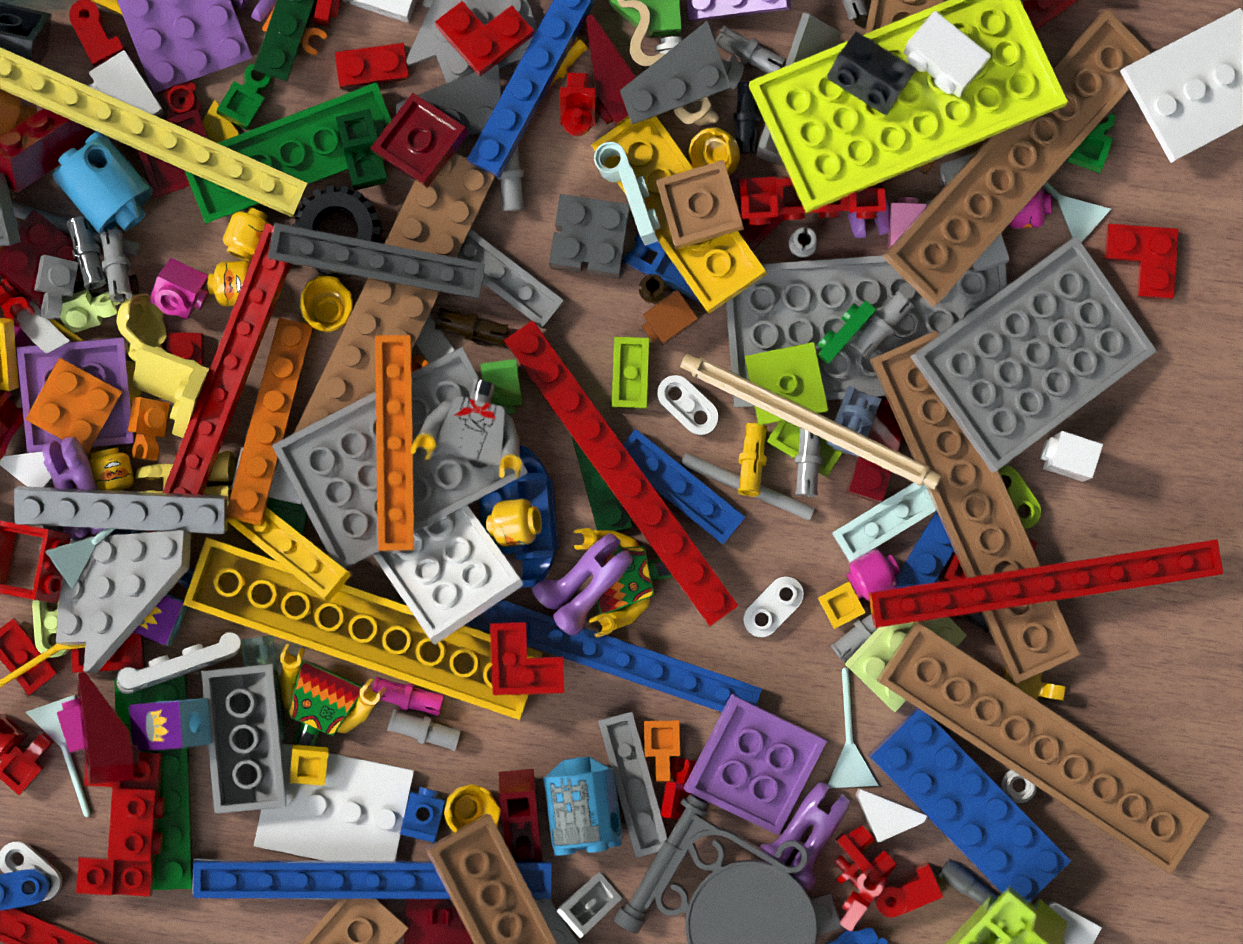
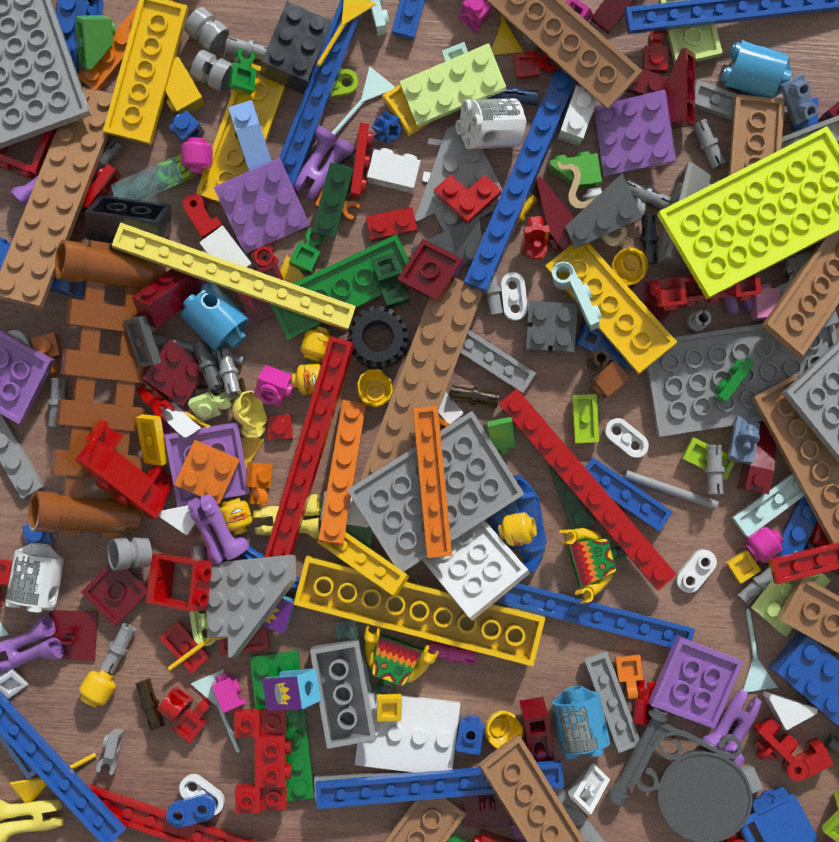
camera: 10 degrees left, 0 degrees up
(56, 280) = (187, 386): light grey plate -> none
(73, 557) = (214, 579): light aqua piece -> none
(105, 737) = (247, 705): dark red slope -> none
(120, 509) = (245, 542): plate -> none
(164, 669) = (283, 648): white plate -> none
(171, 380) = (274, 449): light yellow bracket -> none
(376, 261) = (408, 356): dark grey plate -> none
(424, 730) = (465, 675): light grey pin -> none
(473, 430) = (486, 469): light grey torso -> none
(515, 672) = (529, 634): red plate -> none
(541, 187) = (514, 297): none -> white plate
(557, 593) = (549, 574): medium lavender piece -> none
(699, 204) = (627, 300): medium nougat plate -> none
(752, 460) = (674, 472): yellow pin -> none
(791, 374) = (694, 418): lime plate -> none
(811, 421) = (719, 444): tan piece -> none
(858, 903) = (776, 773): plate -> none
(870, 73) = (743, 199): black bracket -> none
(882, 325) = (757, 373): light grey pin -> none
(946, 55) = (795, 181): white brick -> none

